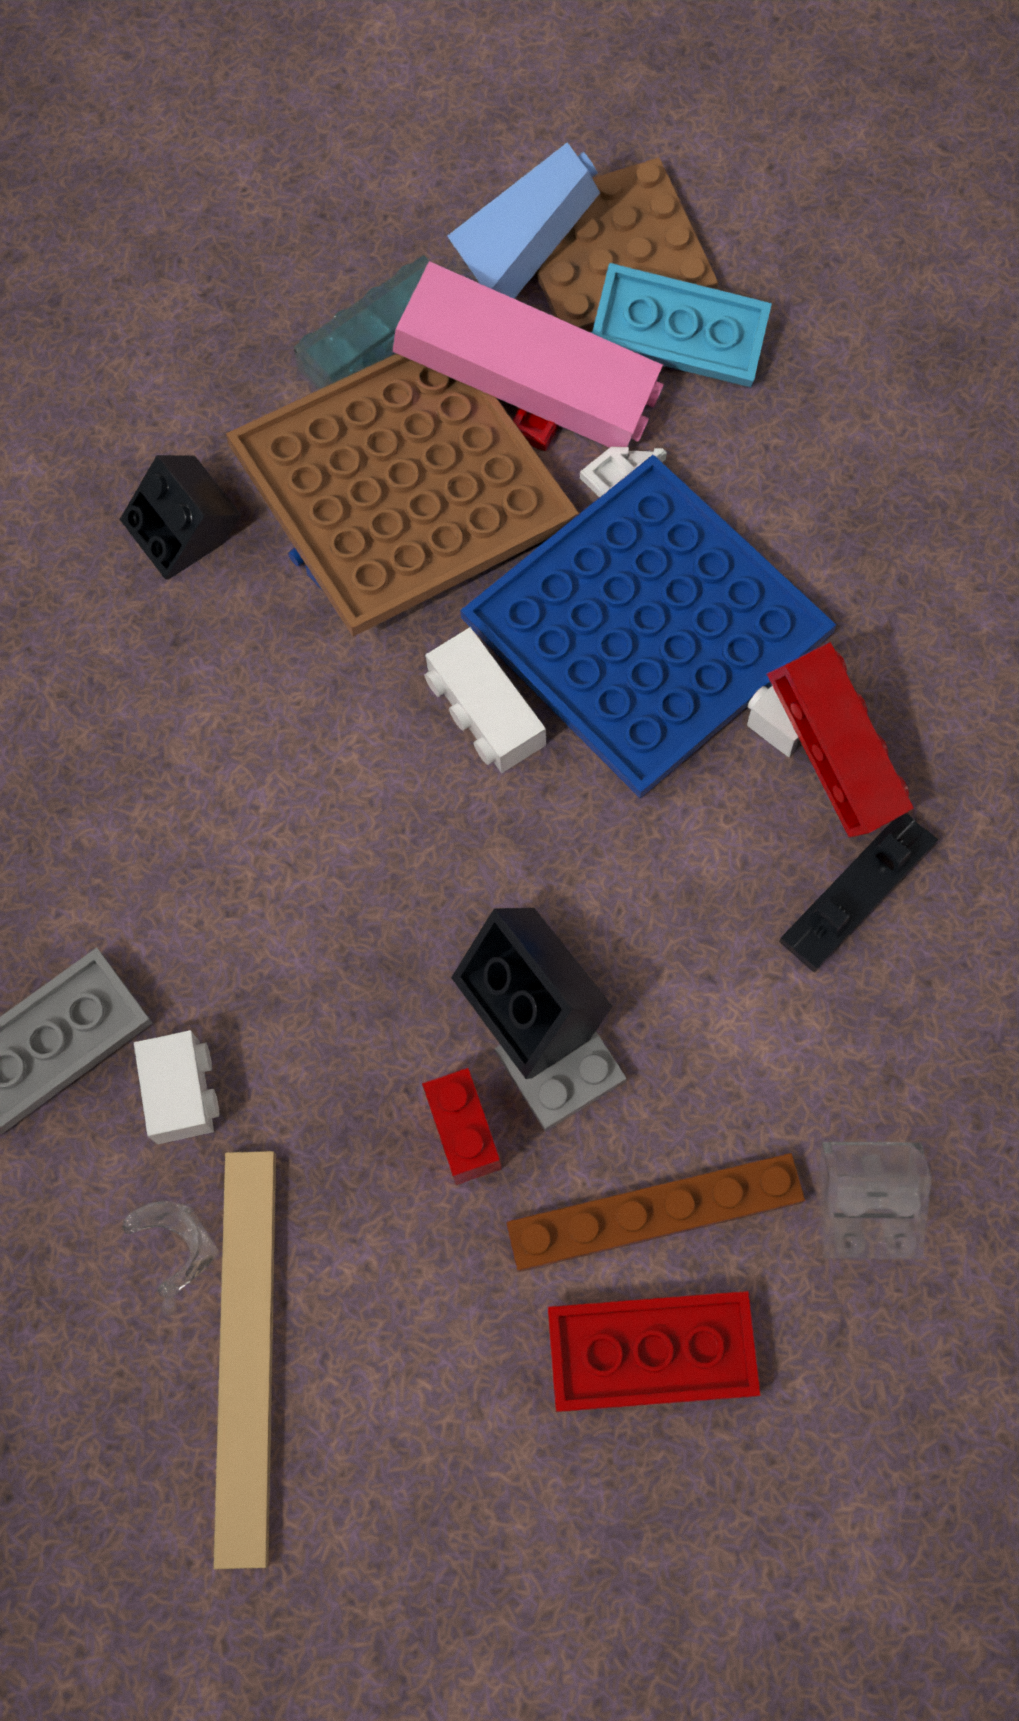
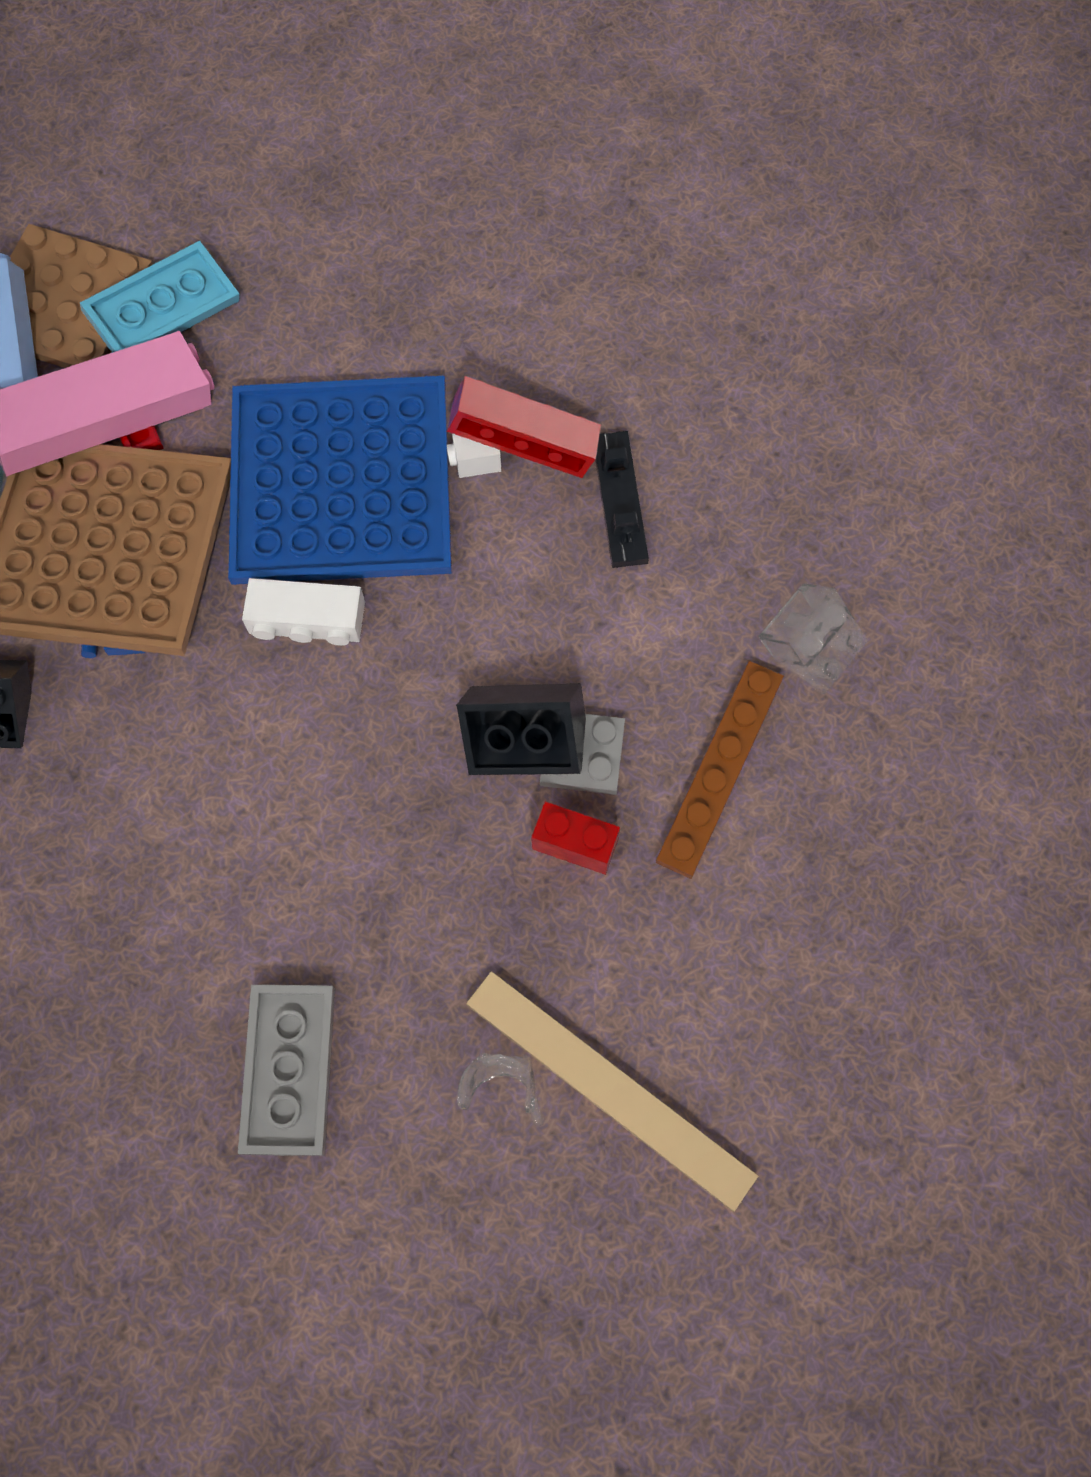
camera: 55 degrees left, 0 degrees up
(175, 1087) = (395, 1002): white brick -> none
(614, 466) = (217, 416): white tile -> none
(653, 1351) = (805, 834): red plate -> none

